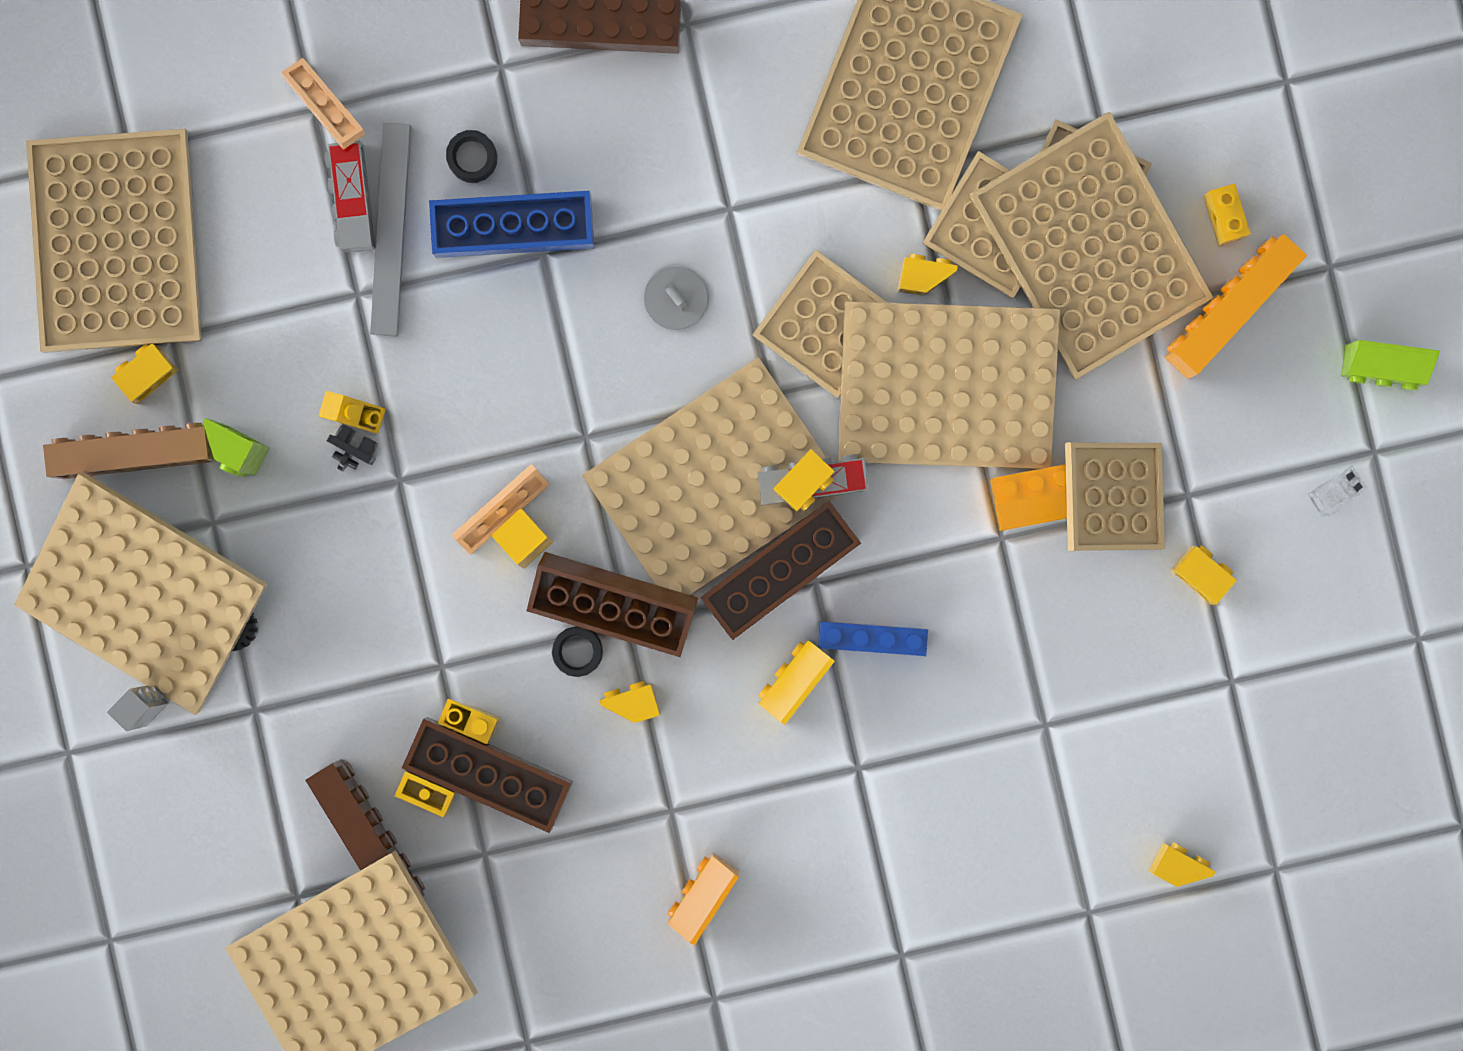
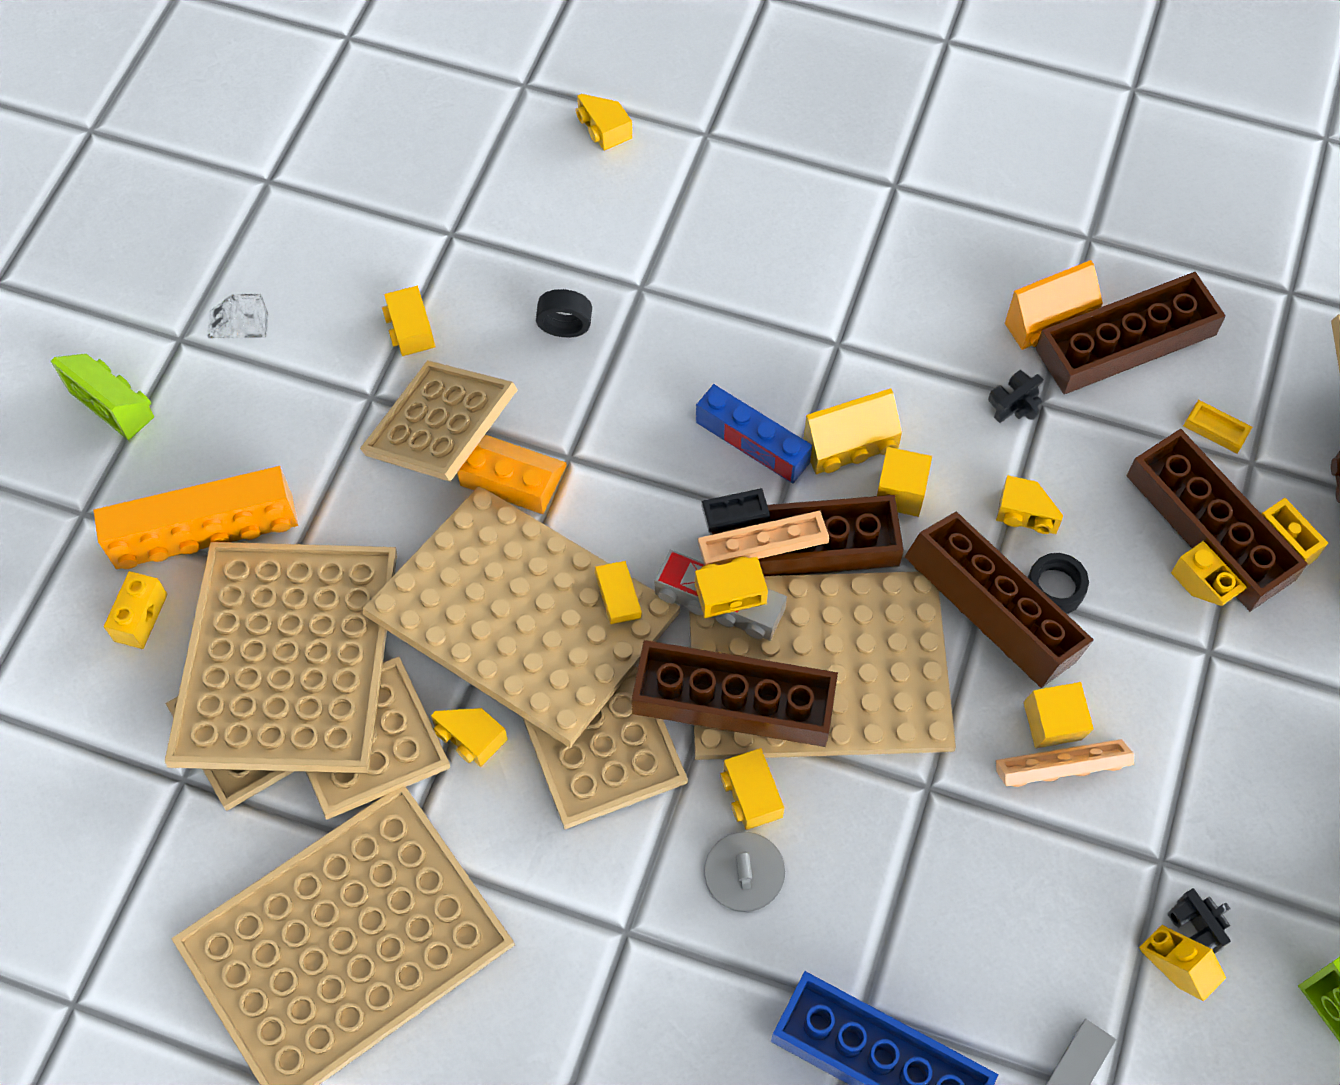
camera: 150 degrees left, 25 degrees down
(525, 870) = (1217, 426): none -> yellow tile
(633, 911) = (1129, 332): none -> reddish brown brick
(696, 787) = (1021, 401): none -> black hips
(703, 355) = (752, 789): none -> yellow brick
(735, 665) = (906, 477): none -> yellow head
(755, 408) = (734, 693): none -> reddish brown brick
(804, 536) = (765, 539): none -> light nougat plate
(840, 549) = (735, 510): none -> black plate
(887, 438) = (618, 592): none -> yellow tile
(1084, 652) = (567, 302): none -> black tyre

